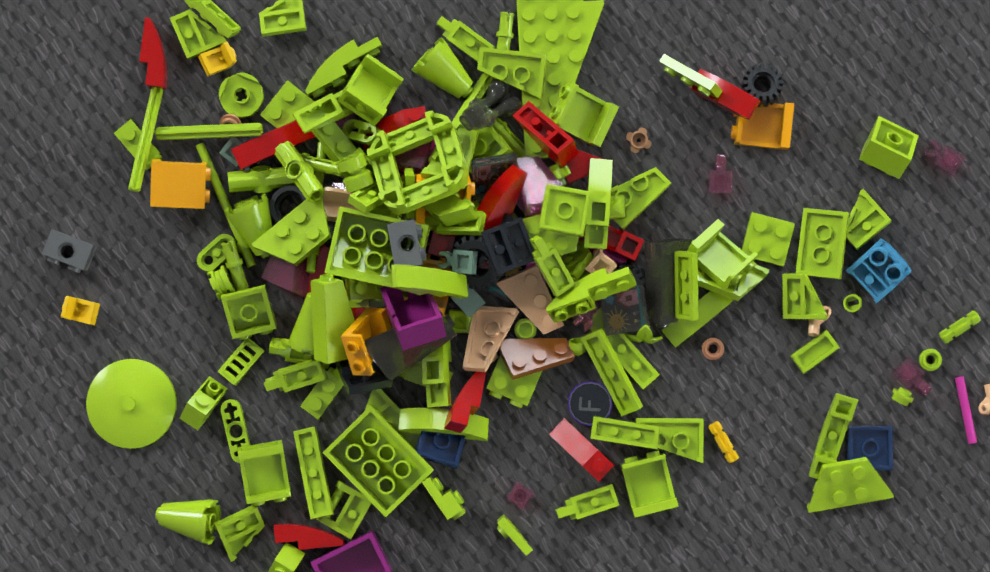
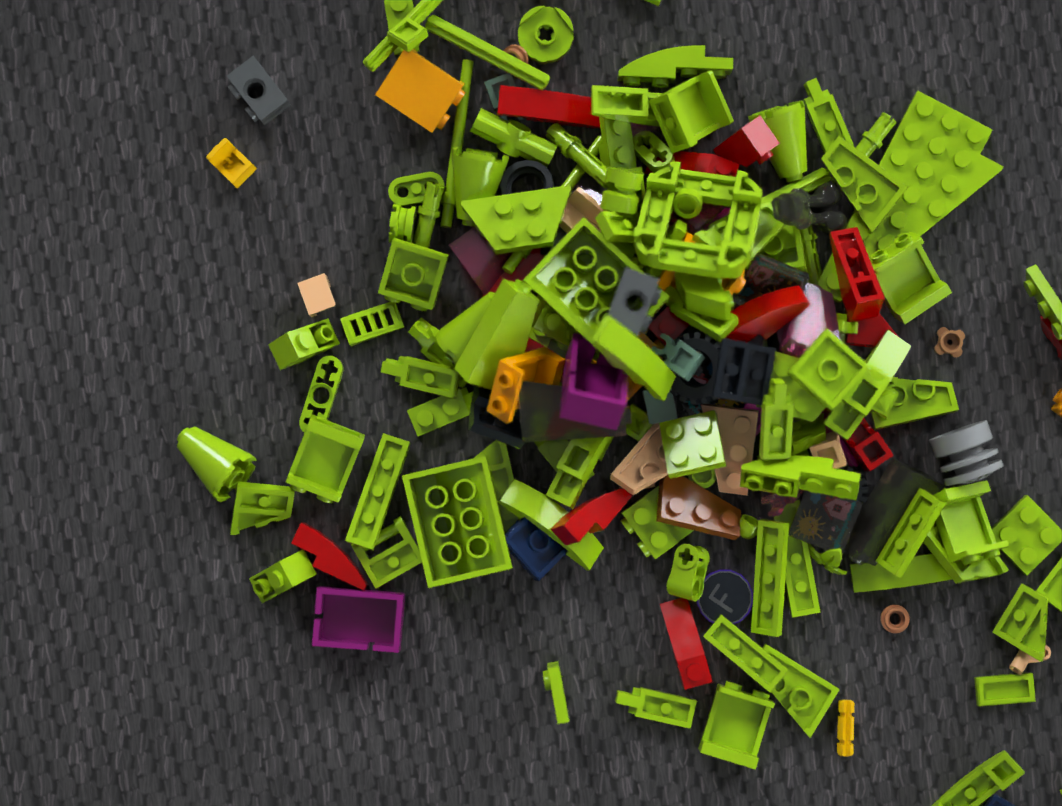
camera: 30 degrees right, 0 degrees up
(131, 403) = (225, 297): lime dish -> none
(147, 153) = (407, 34): none -> lime tile
(192, 364) = (316, 294): none -> light nougat panel
(284, 104) = (581, 73): lime wing -> none
(299, 171) = (561, 153): lime piece -> none
(404, 154) = (687, 203): none -> lime tile
(422, 88) = (749, 144): none -> red slope
(448, 502) = (506, 611): lime plate -> none
(505, 314) = (692, 444): none -> lime plate
(526, 494) = (587, 659): clear pink plate -> none
(555, 402) = (686, 574): none -> lime piece
(693, 209) = (966, 453): none -> light grey wheel
(720, 180) = (1013, 438): clear pink plate -> none

